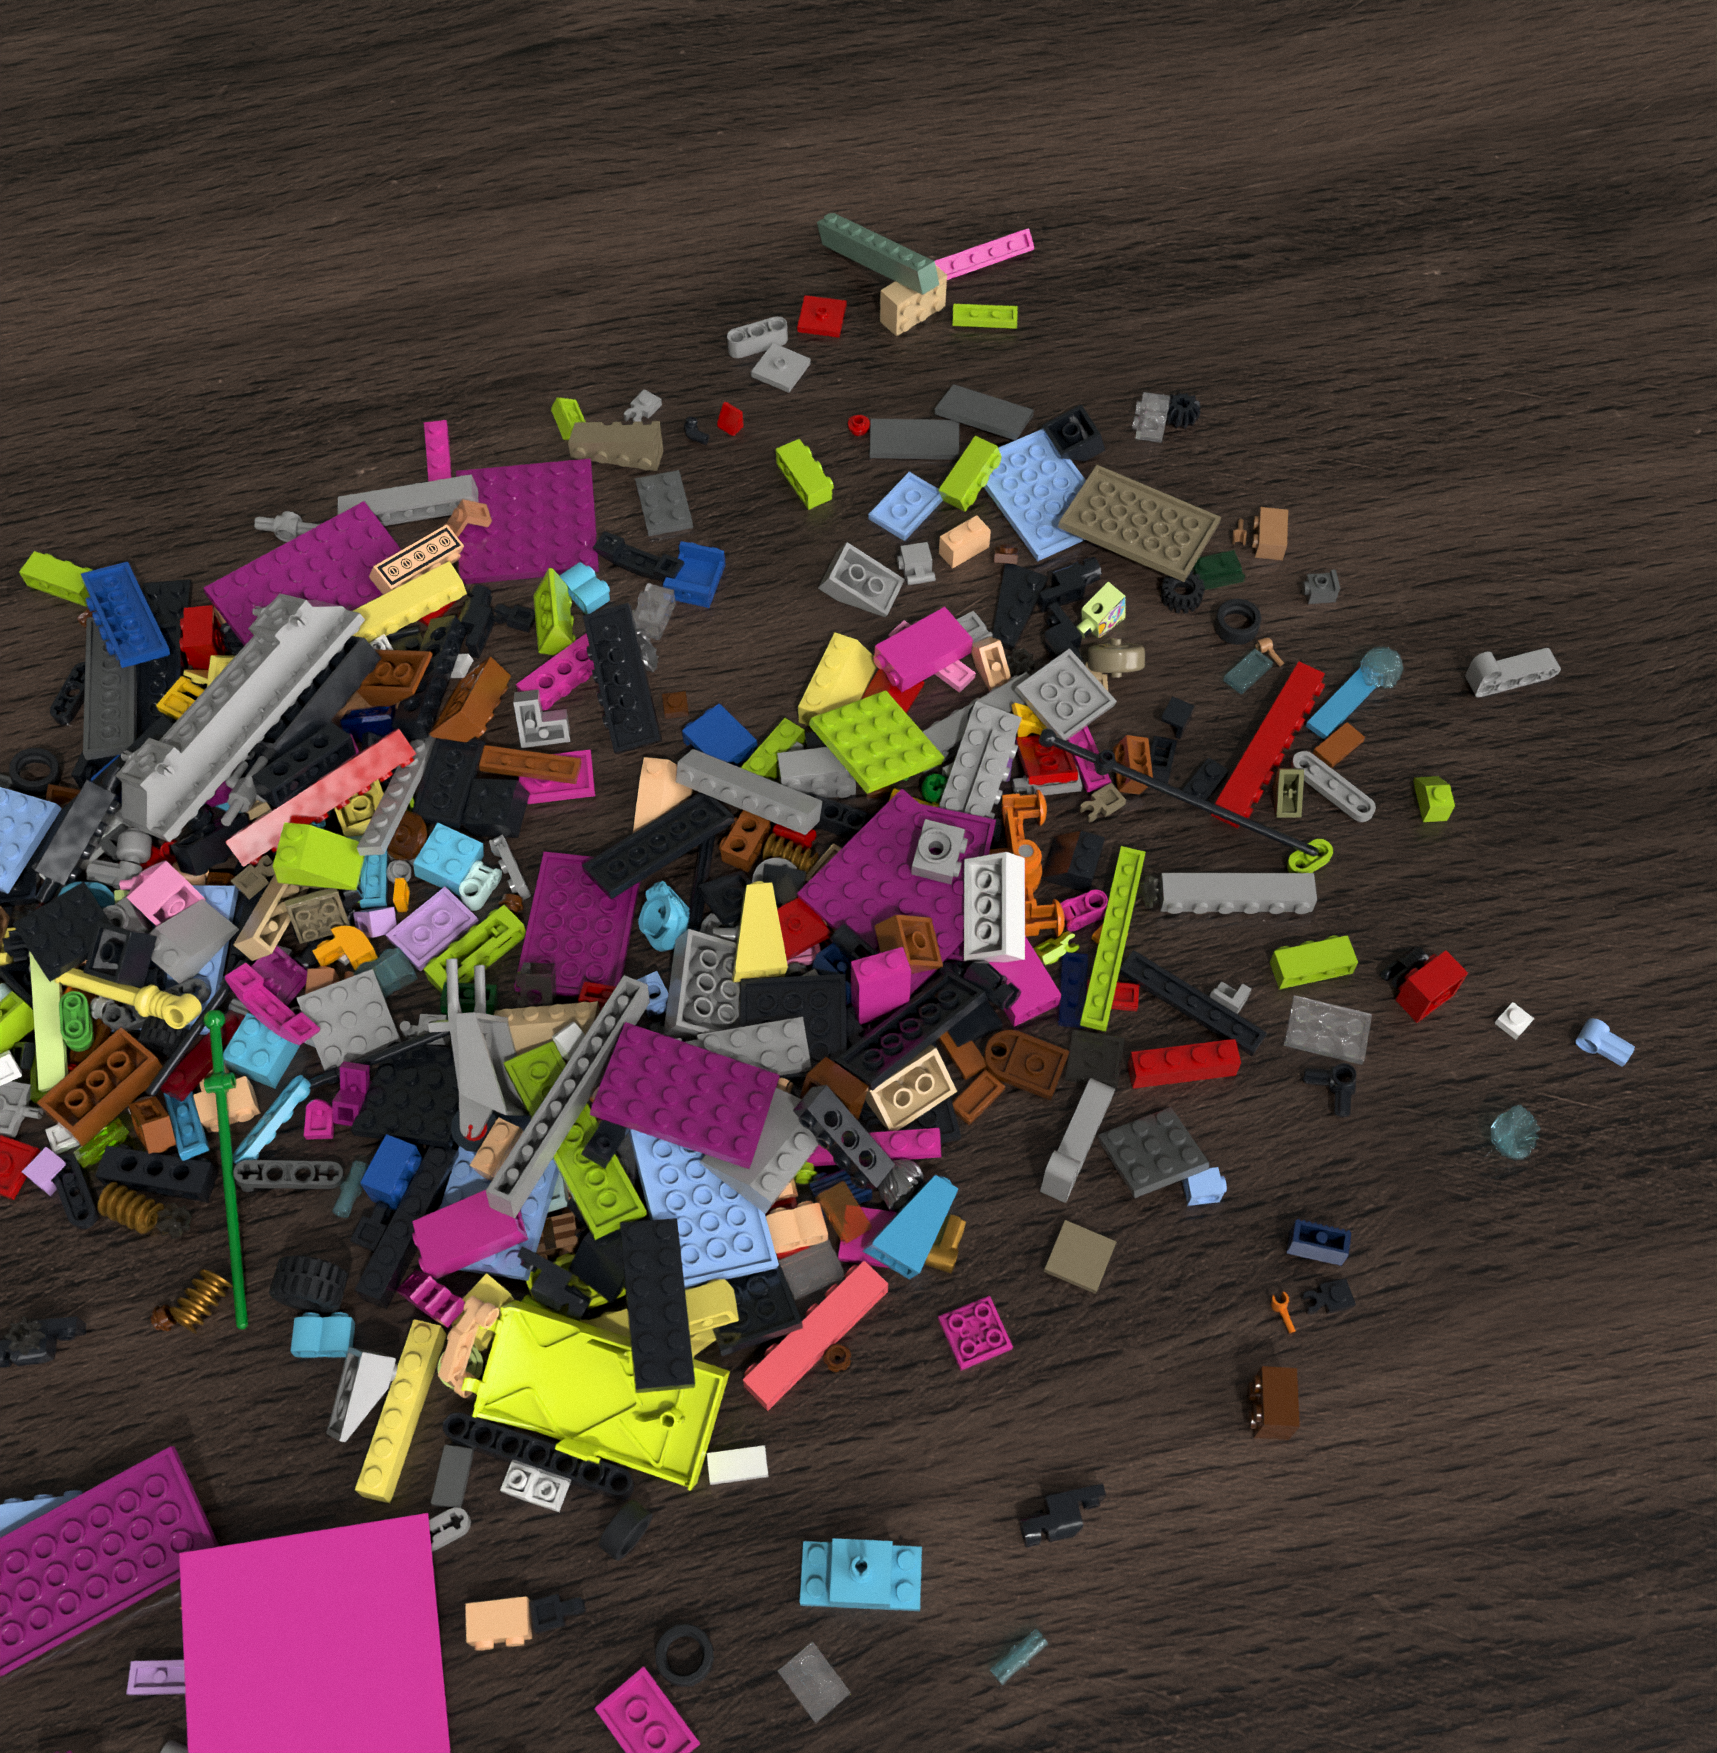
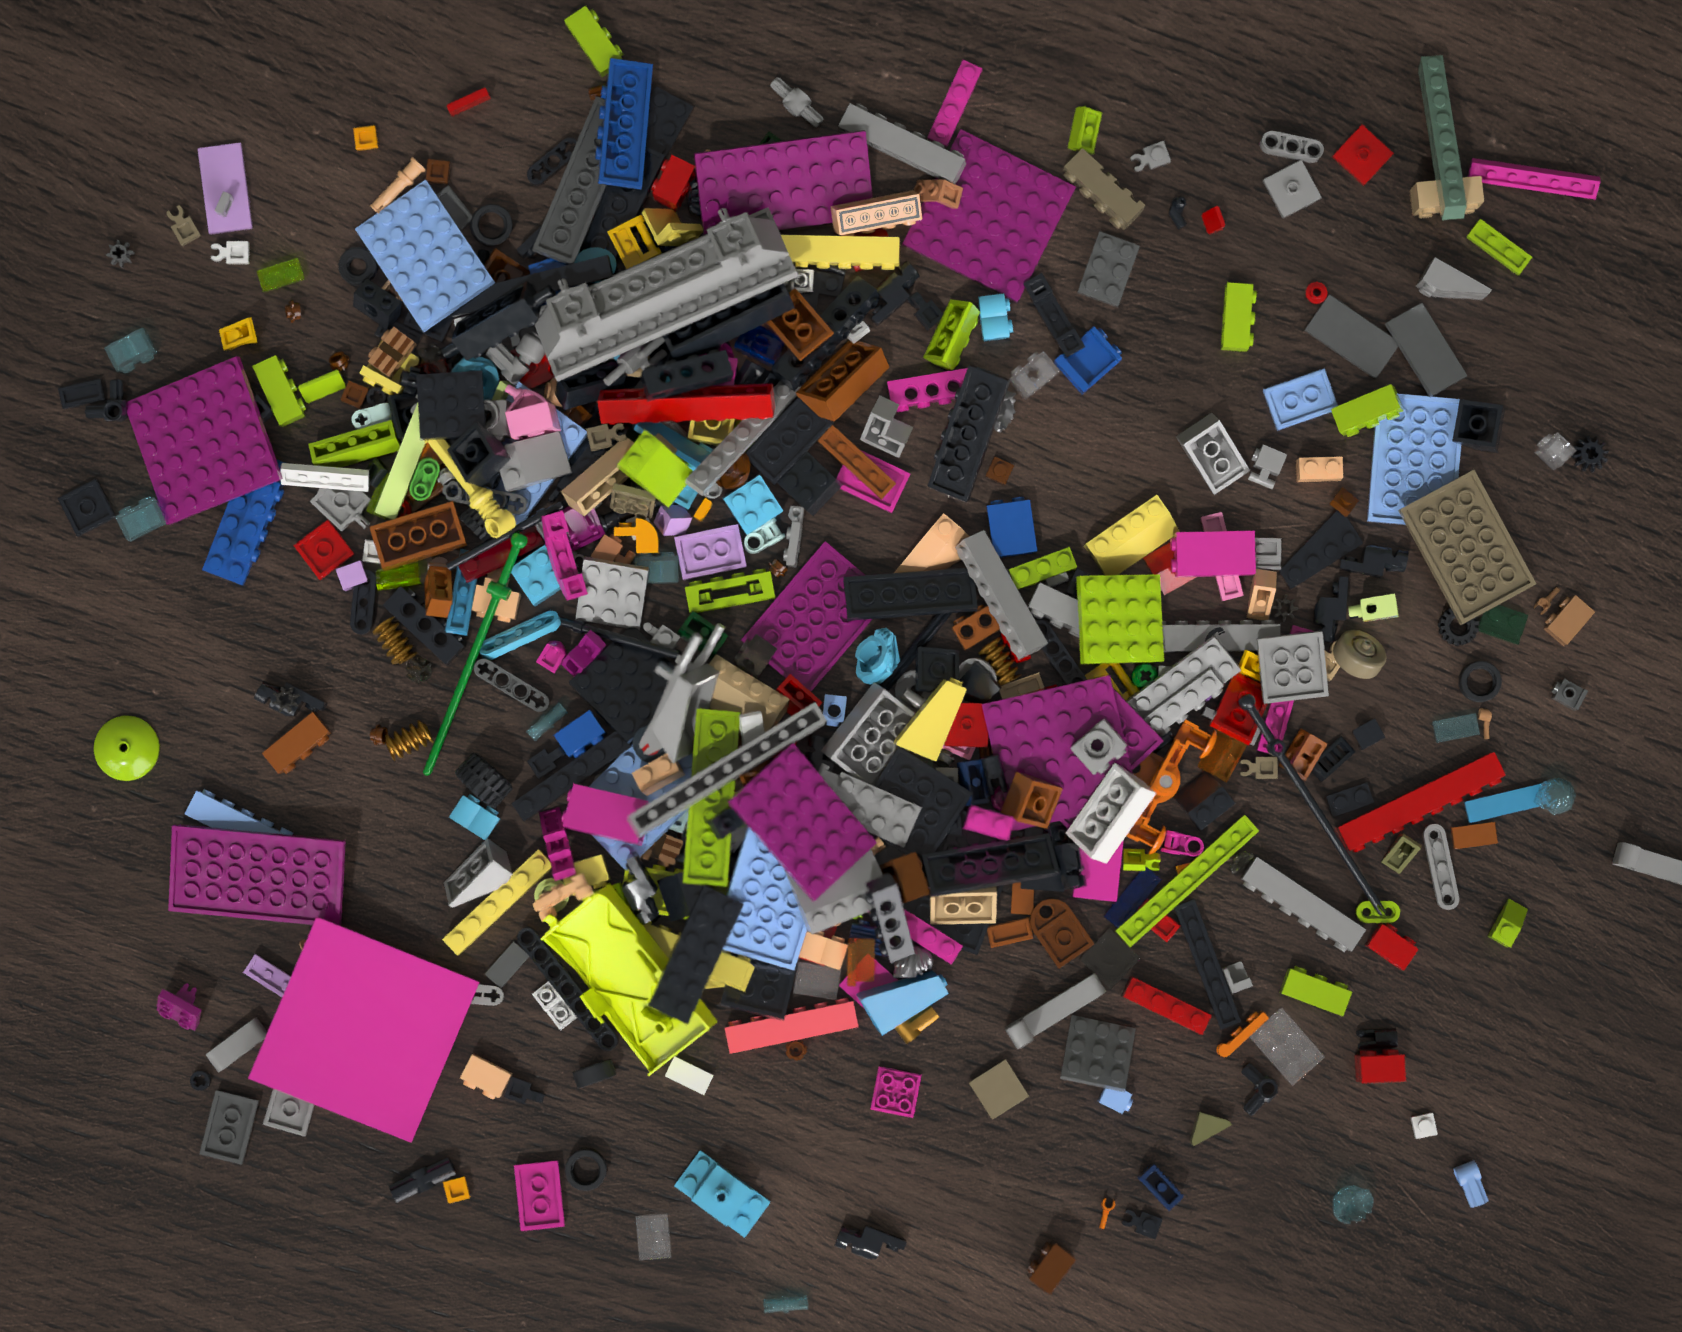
camera: 30 degrees right, 25 degrees up
(67, 1384) = (297, 743): none -> dark orange brick
(967, 351) = (1447, 282): none -> light grey slope
(1061, 812) = (1223, 757): none -> clear orange panel
(1276, 1045) = (1240, 1034): none -> orange plate
(1313, 1154) = (1207, 1126): none -> olive slope
(1348, 878) = (1391, 946): none -> red brick

